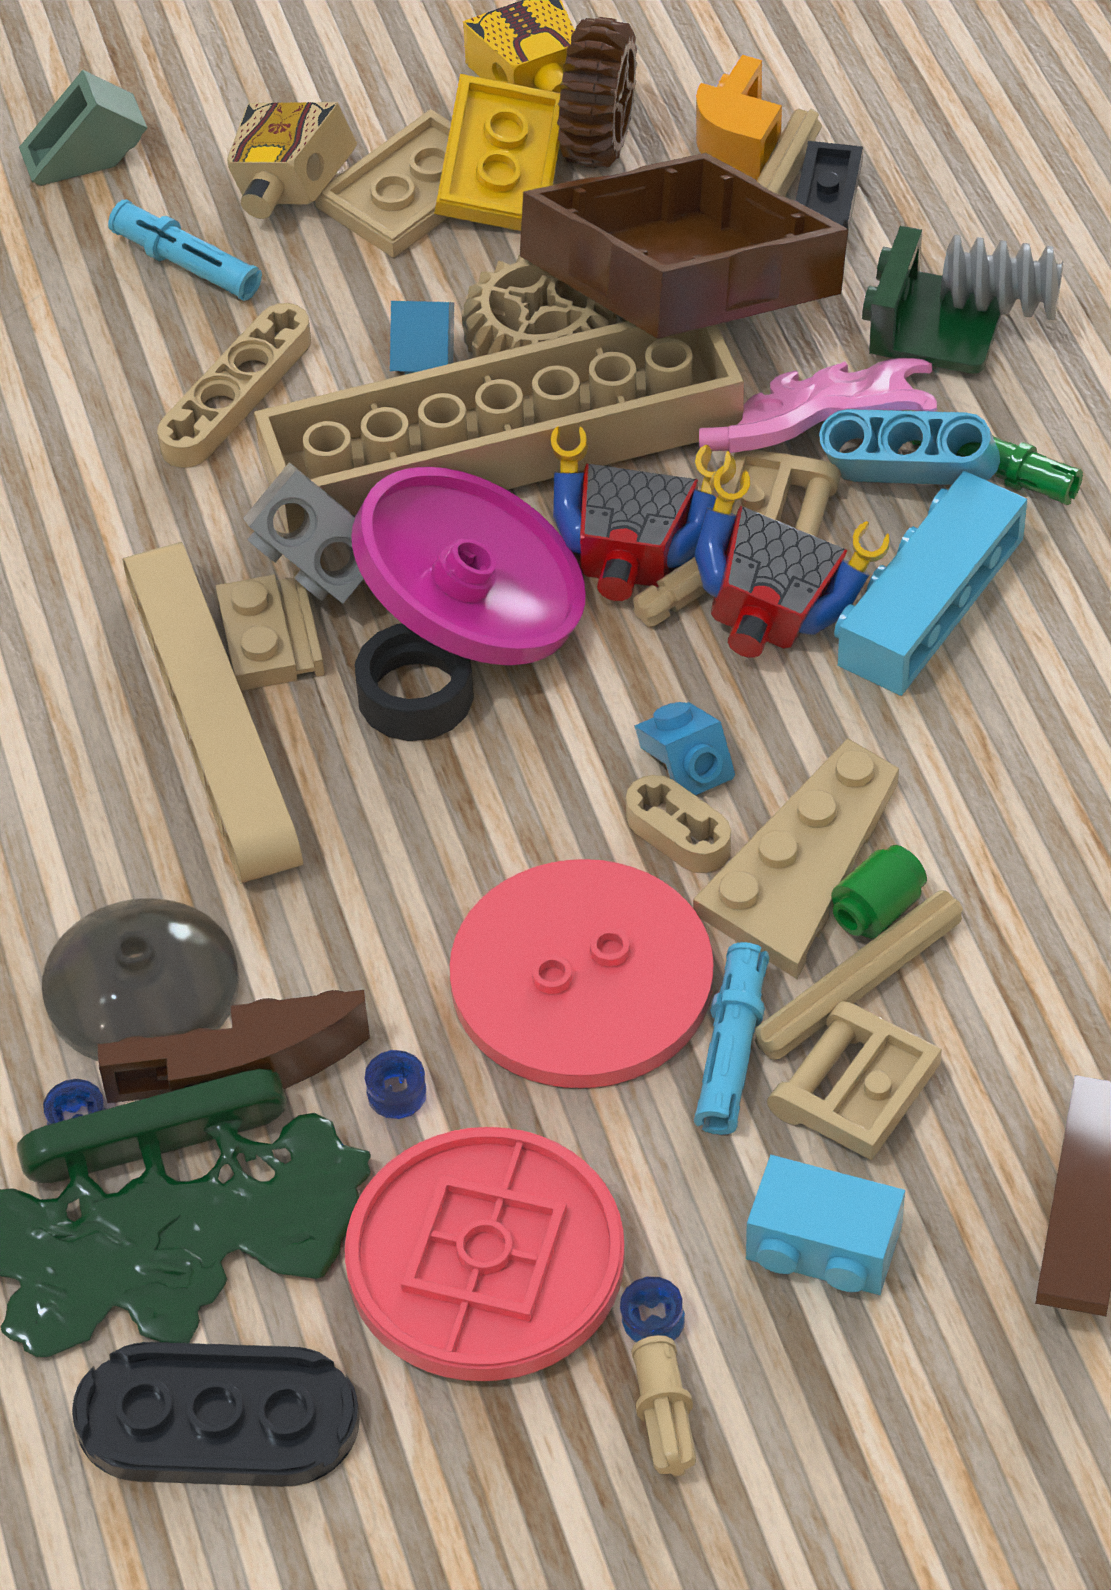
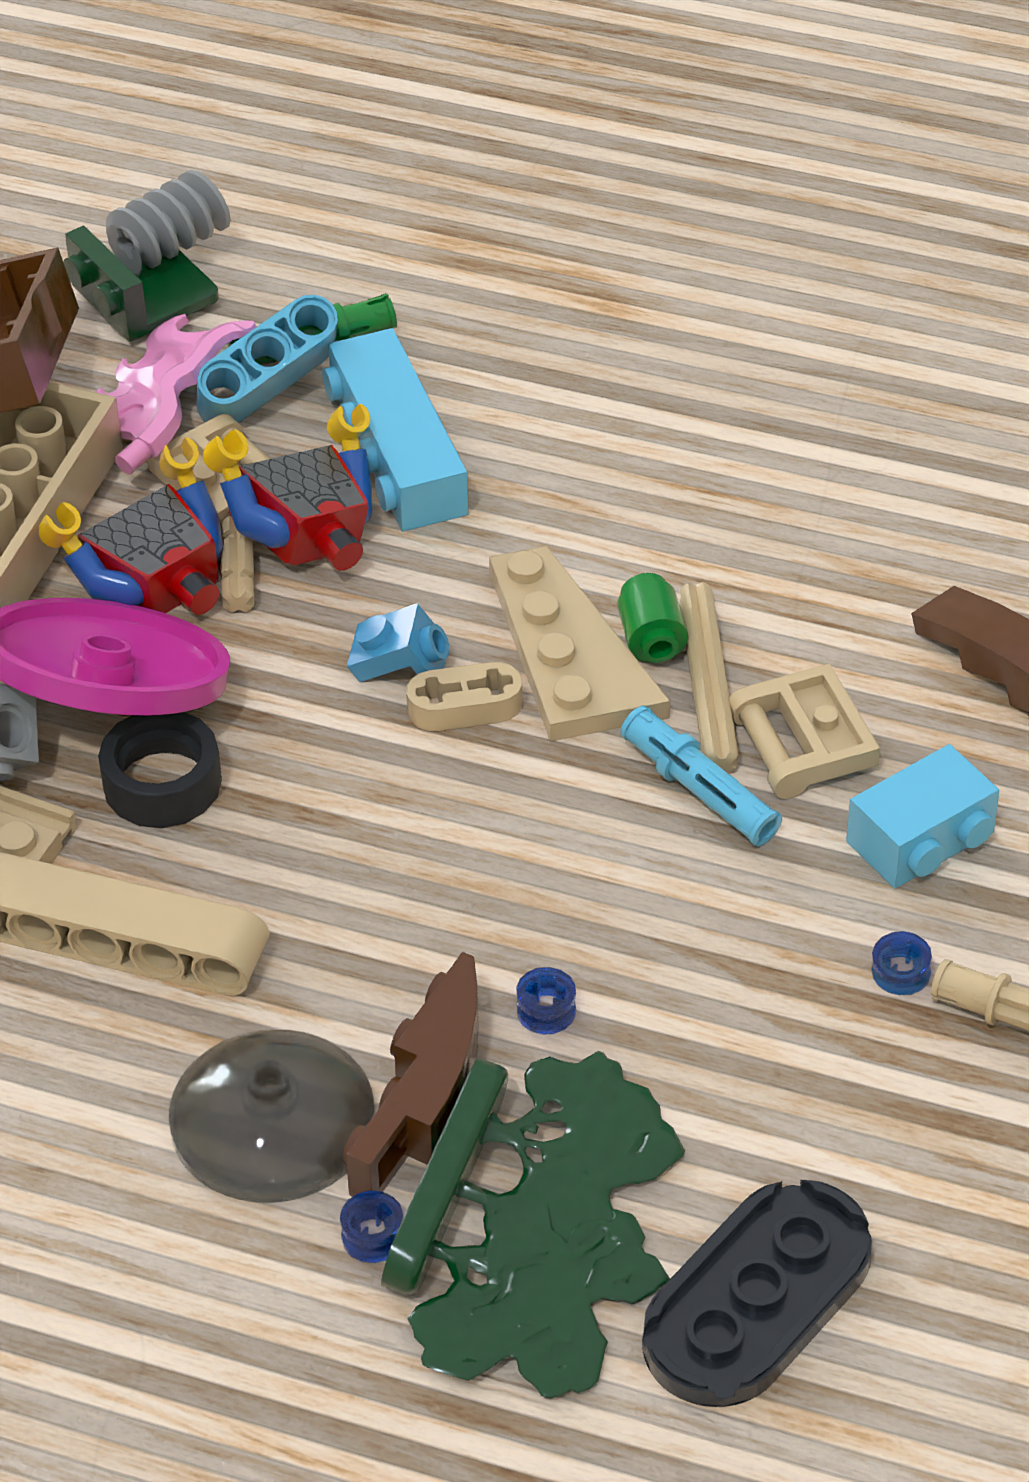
camera: 55 degrees left, 5 degrees down
(485, 1254) = (762, 1032): coral plate -> none
(581, 973) = (547, 832): coral plate -> none

